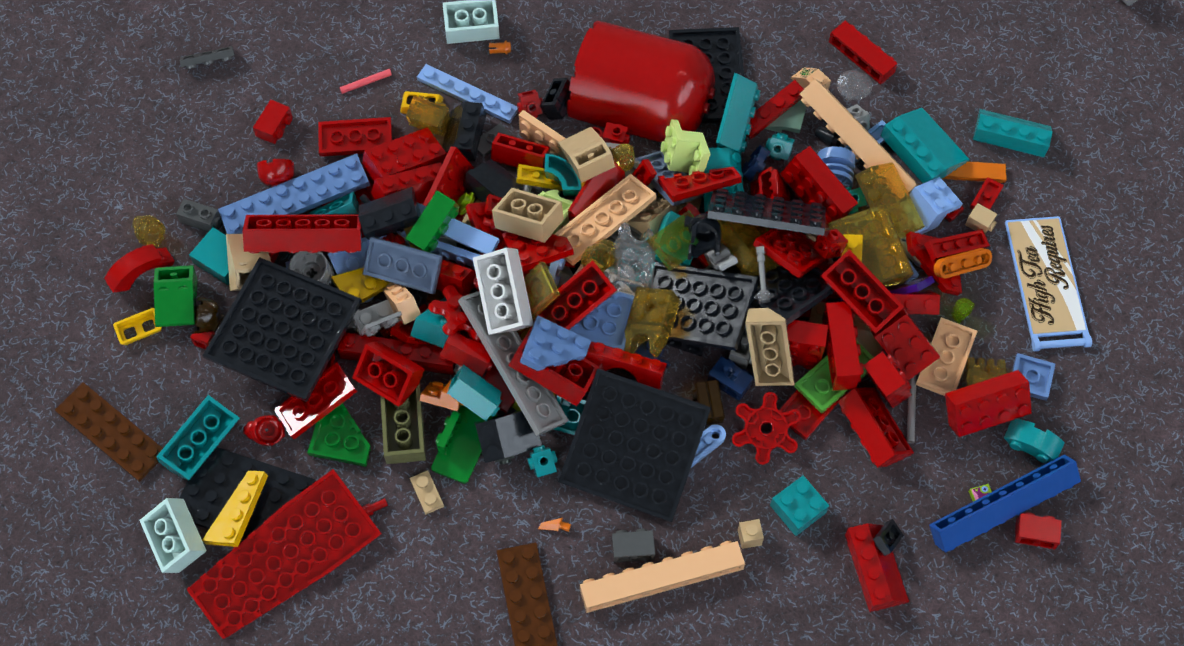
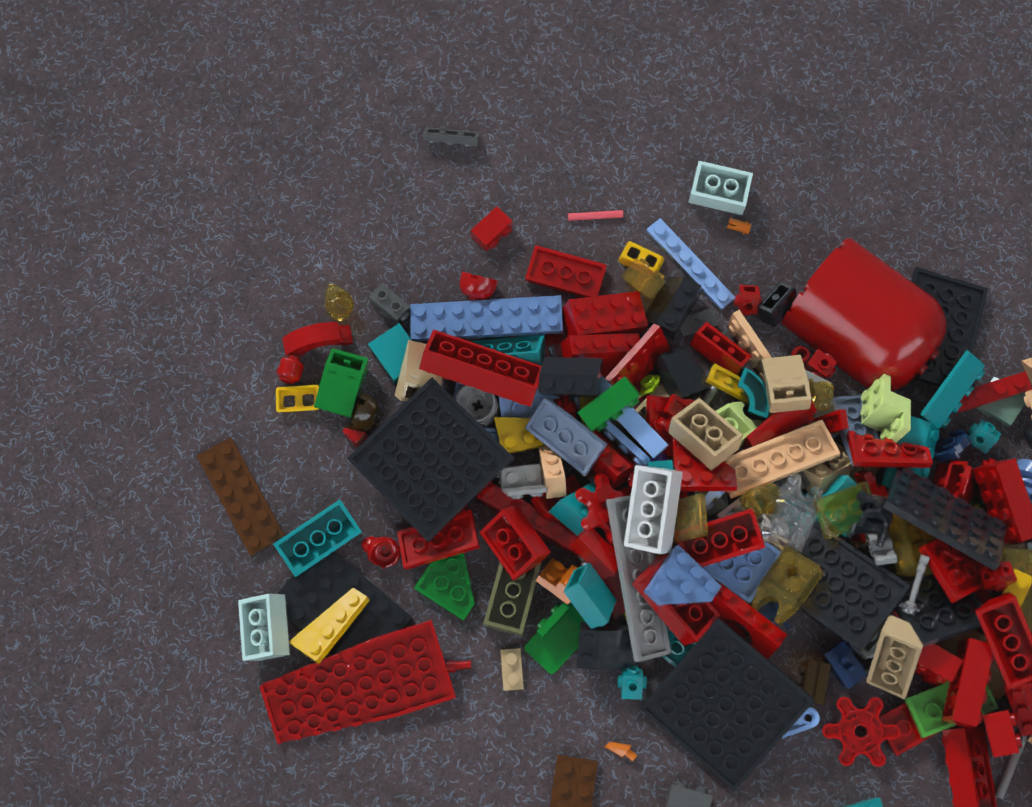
camera: 20 degrees right, 10 degrees up
(121, 303) = (290, 369): none -> red head

